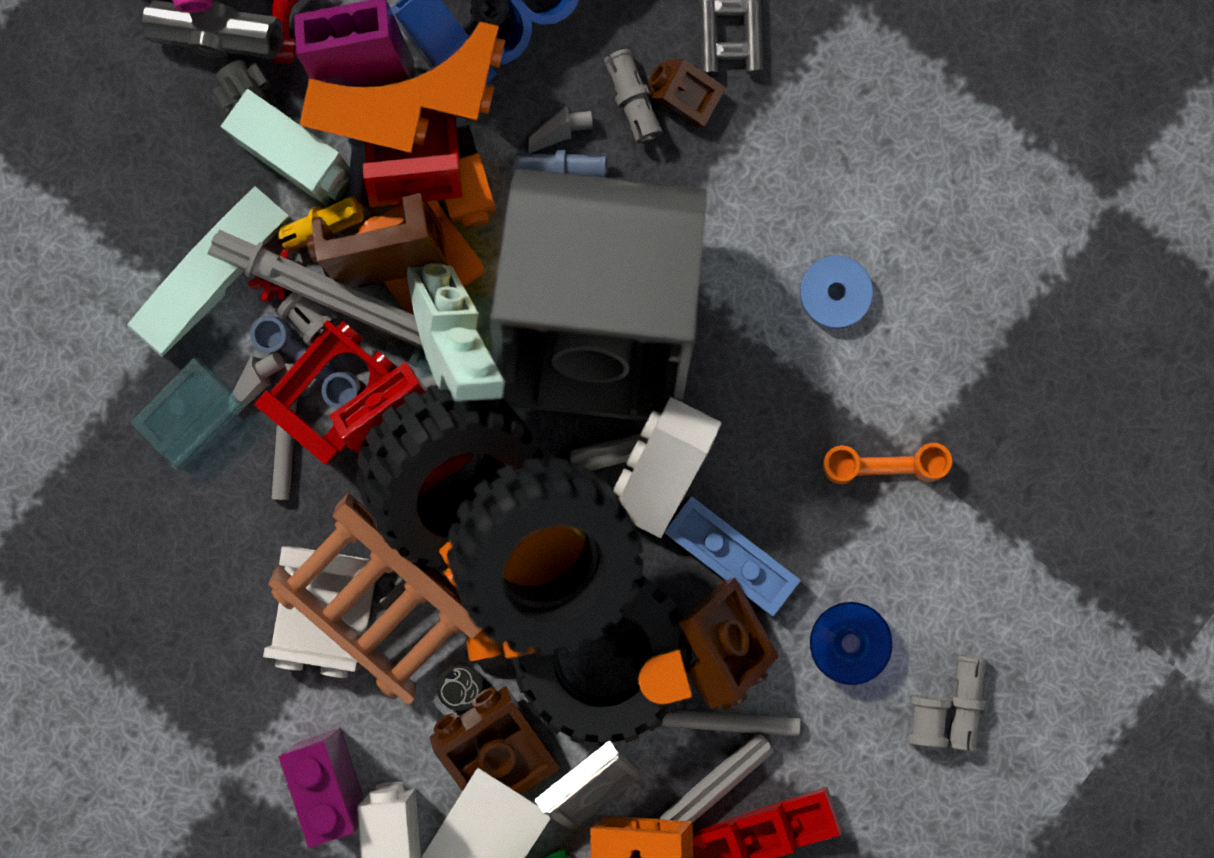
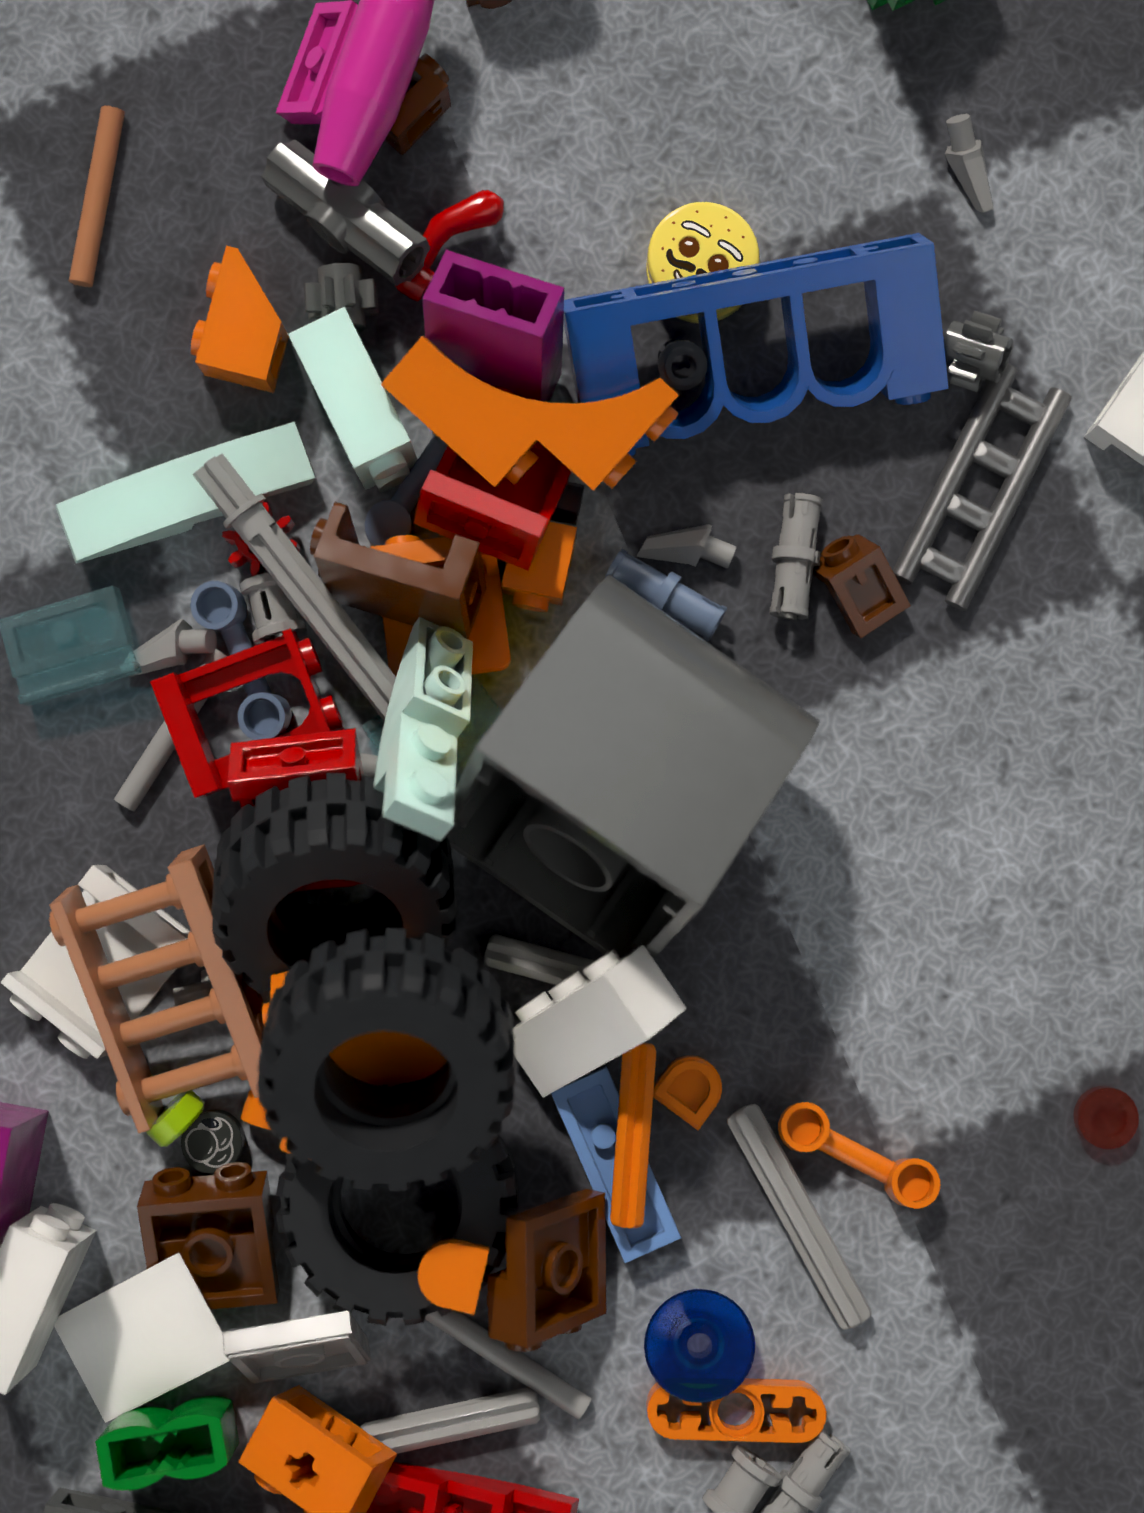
camera: 25 degrees right, 0 degrees up
(42, 109) = (96, 196): none -> nougat bar
(188, 145) = (242, 331): none -> orange slope
(337, 216) = (367, 511): yellow axle -> none
(427, 683) = (176, 1118): none -> lime tile
(732, 529) = (633, 1136): none -> orange axle
(753, 482) = (689, 1089): none -> orange tile
(850, 277) = (936, 923): medium blue piece -> none
(870, 525) = (799, 1216): none -> light grey axle
(933, 668) = (781, 1431): none -> orange beam
(1034, 351) = (1106, 1117): none -> clear red tile

